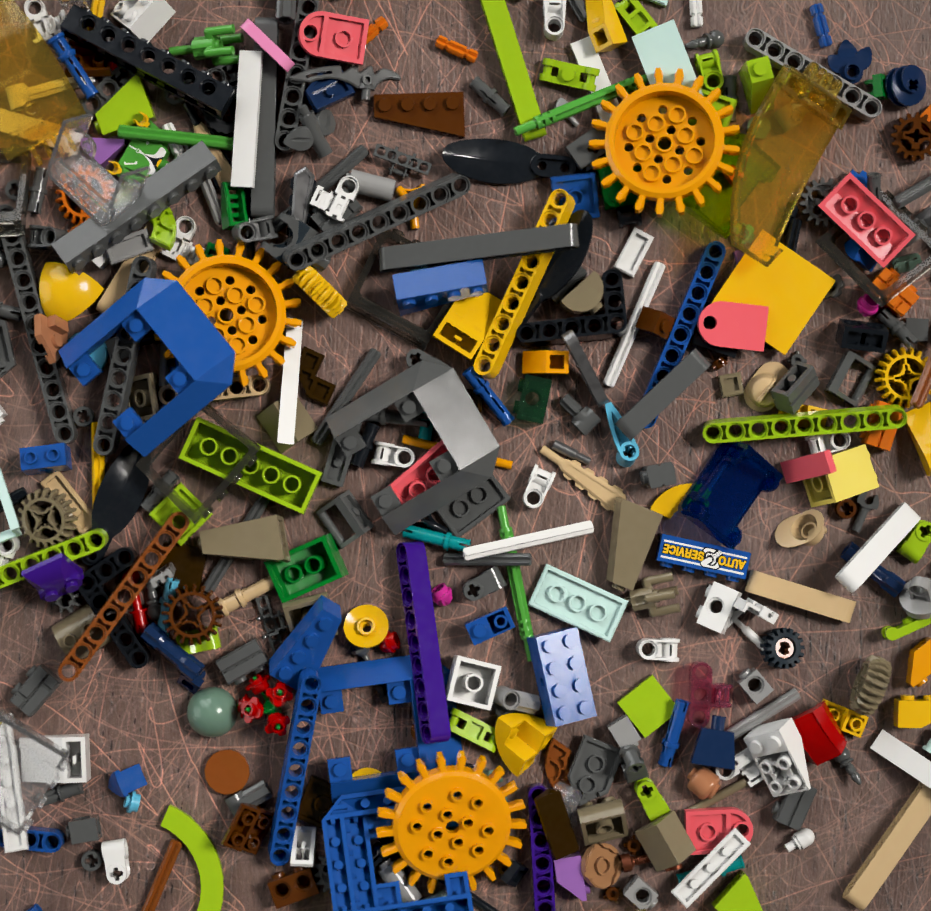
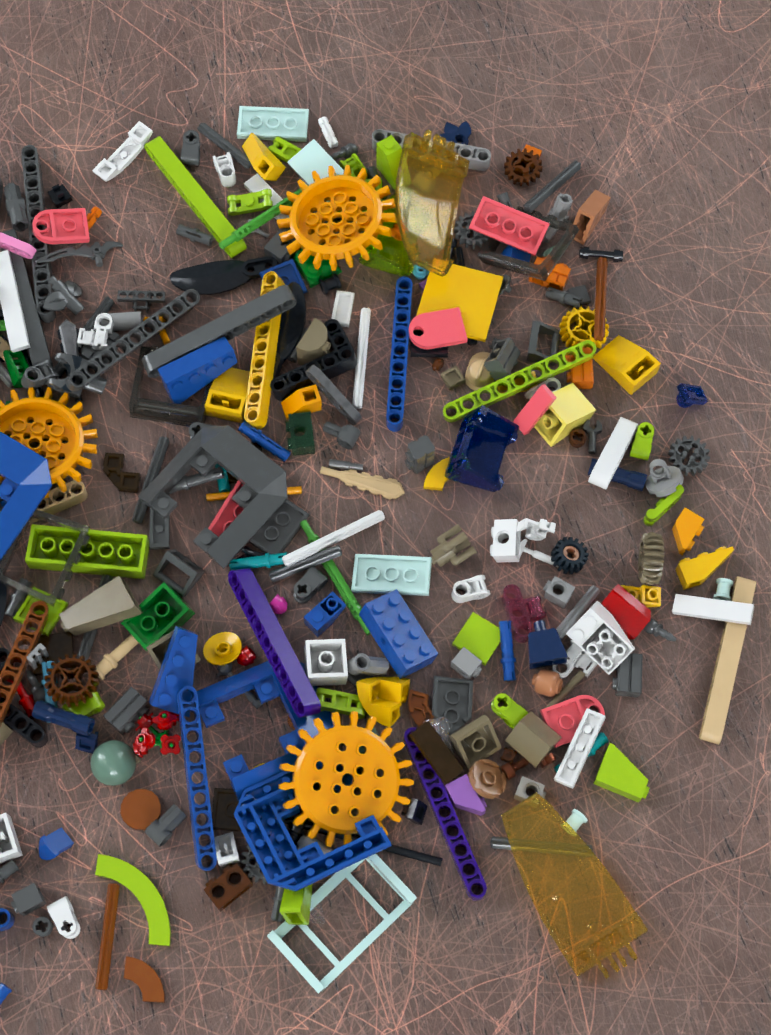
camera: 25 degrees left, 20 degrees down
(132, 802) = (64, 862): medium azure plate -> none
(248, 828) = (172, 847): reddish brown slope -> none
(271, 617) = (137, 666): dark grey piece -> none
(289, 387) = (102, 483): white sticker -> none
(303, 426) = (107, 512): dark tan slope -> none
(320, 291) = (104, 403): yellow gear -> none
(328, 92) = (69, 266): dark blue wing -> none
(368, 436) = (177, 514): black pin -> none
(391, 455) = (201, 510): white piece -> none
(430, 111) = (154, 258): reddish brown wing -> none
(456, 49) = (159, 212): orange axle -> none
(538, 485) = (327, 496): white piece -> none
(612, 893) = (505, 802): reddish brown piece -> none
(620, 440) = (382, 439): medium azure piece -> none
(630, 542) = (416, 513): dark tan slope -> none
(632, 763) = (482, 685): dark grey piece -> none
(655, 322) = (377, 348): reddish brown brick -> none
(662, 394) = (400, 392): dark grey beam -> none
(702, 556) = (478, 507): brick -> none
(800, 596) = (570, 512): tan beam -> none
(800, 840) = (645, 704): white cylinder -> none
(801, 529) = (551, 461): tan piece -> none
(821, 25) = (424, 117): blue axle -> none
(862, 335) = (538, 308): black brick -> none
(867, 306) = (534, 289): dark pink plate -> none
(878, 86) = (483, 141): green tile -> none
(905, 85) = (502, 136): dark blue piece -> none

